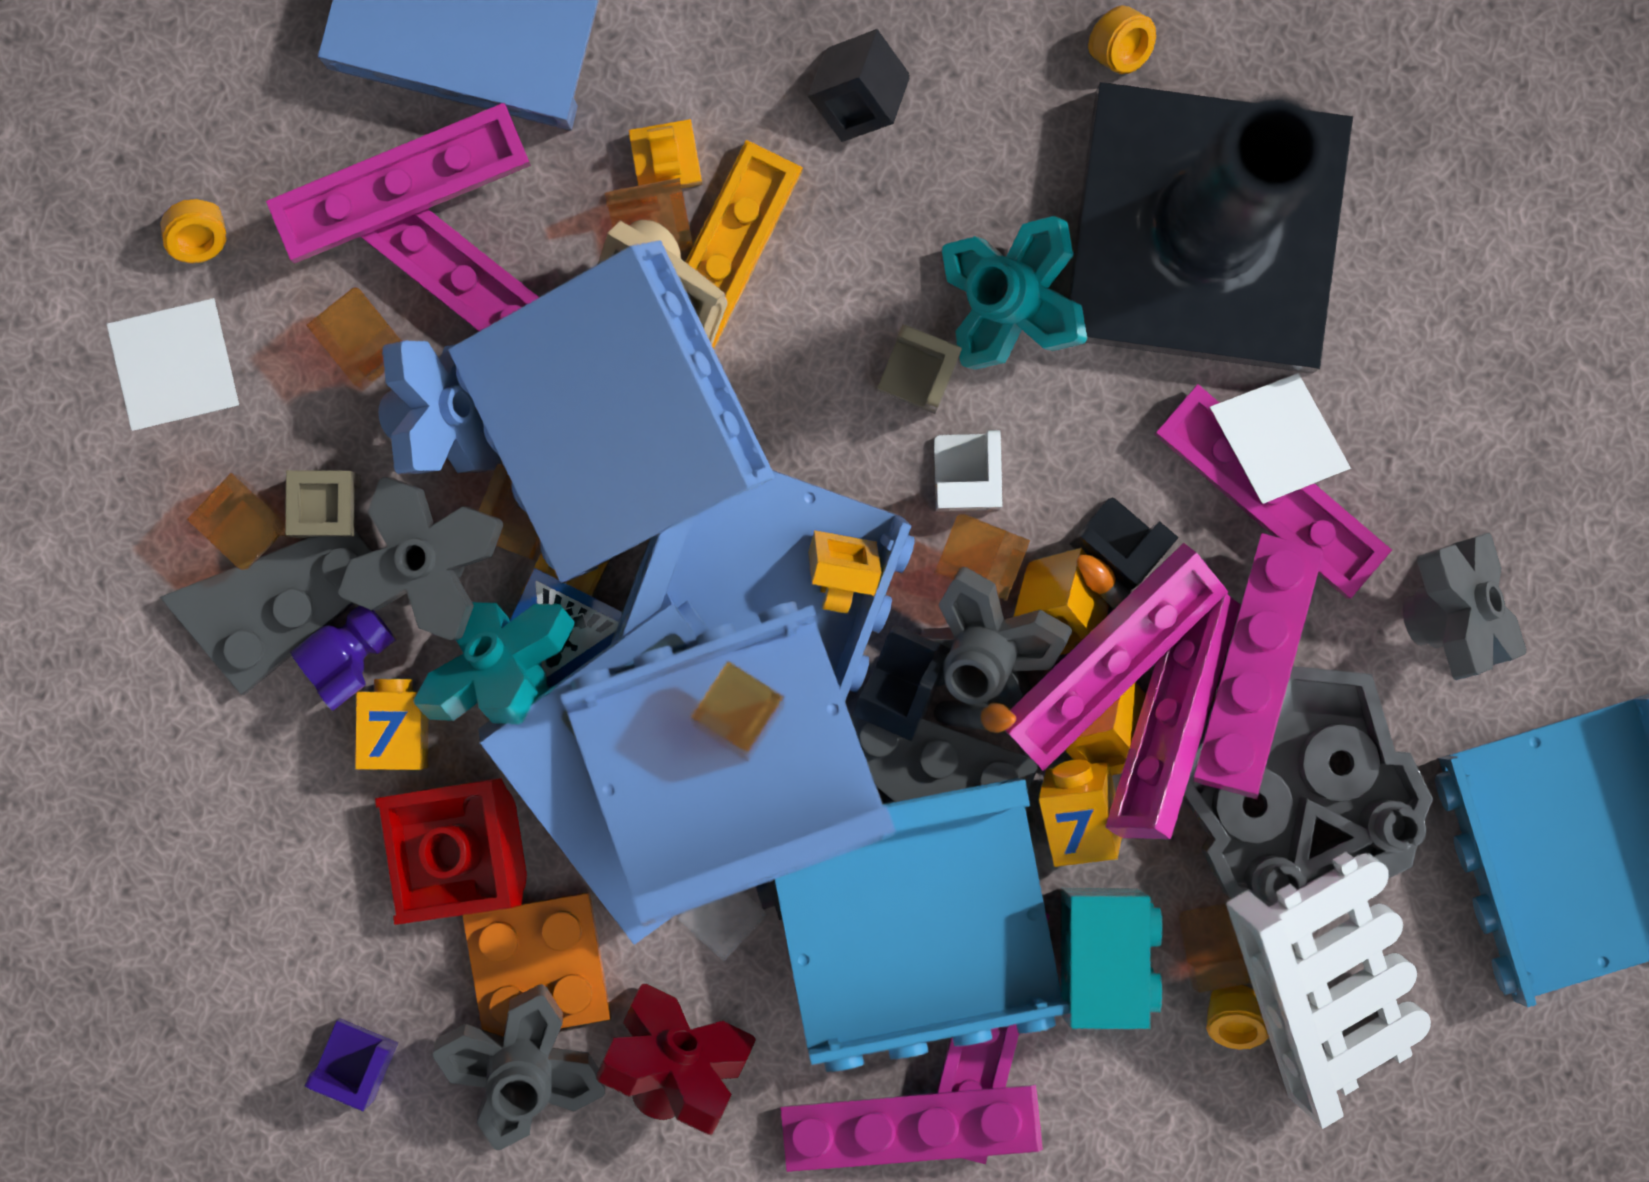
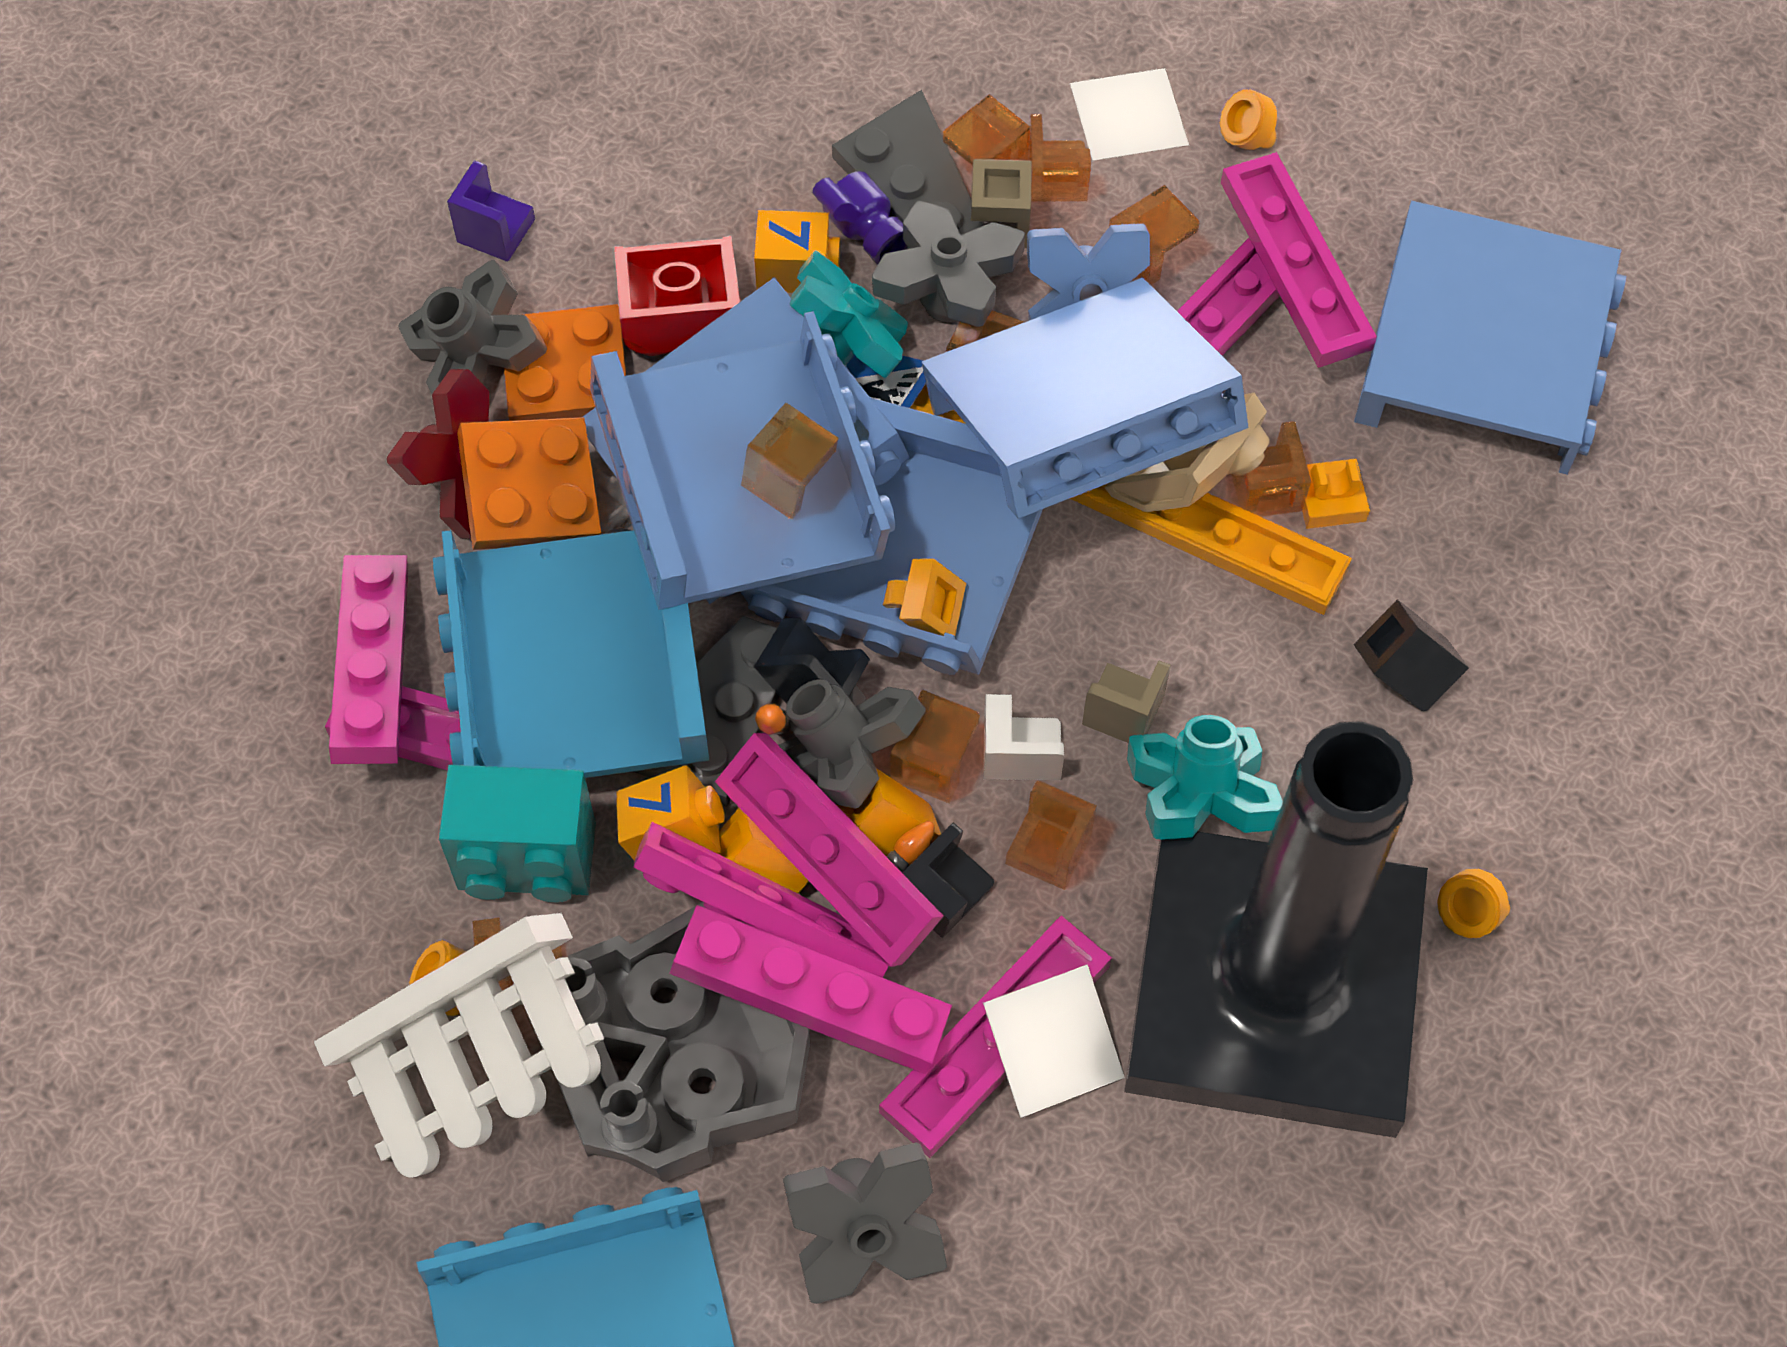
camera: 95 degrees right, 25 degrees down
(256, 442) = (1058, 167): none -> clear orange panel
(720, 985) = (527, 481): none -> orange plate
(1074, 442) = (1052, 835): none -> clear orange panel

